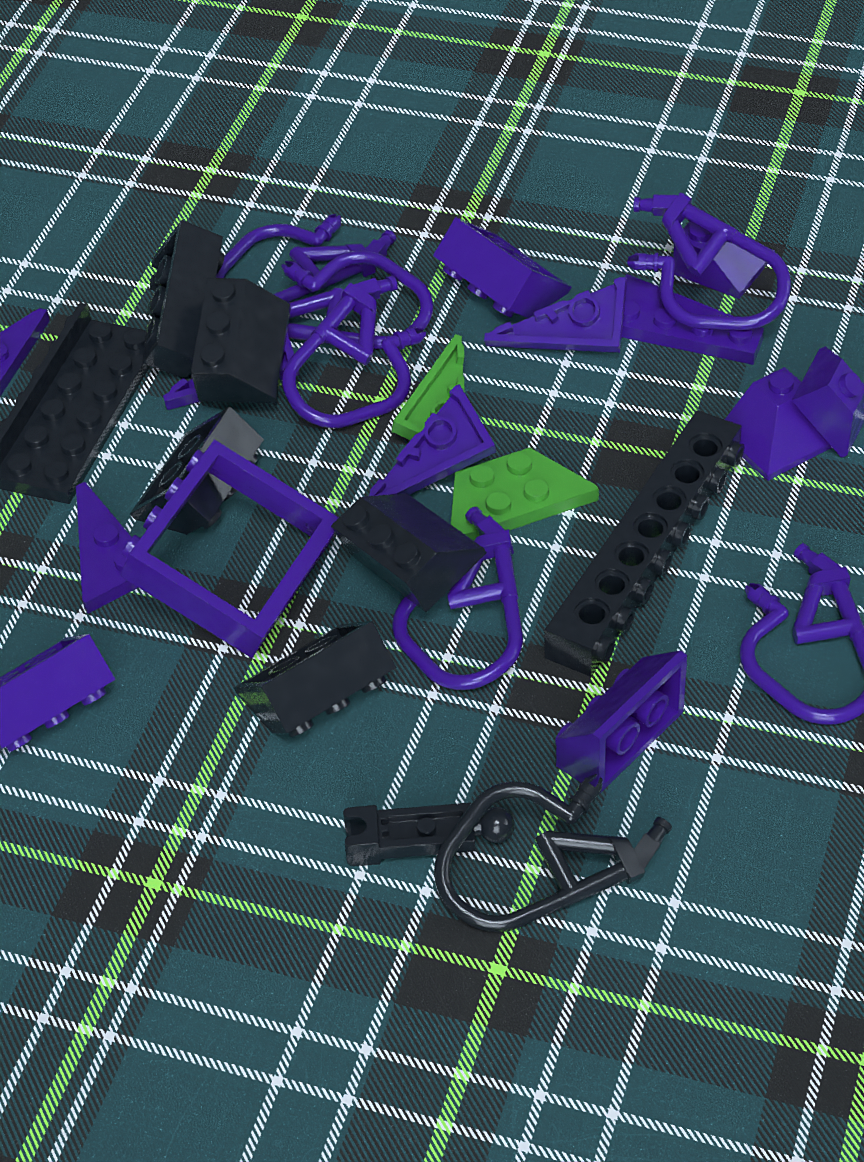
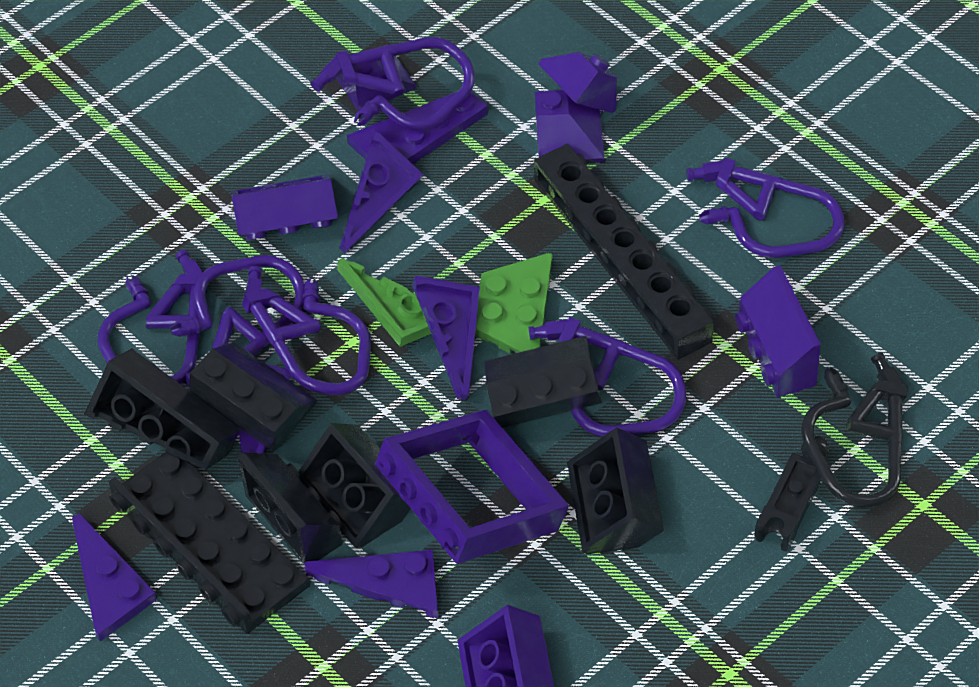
camera: 60 degrees left, 5 degrees up
(131, 432) = (290, 506): none -> black slope

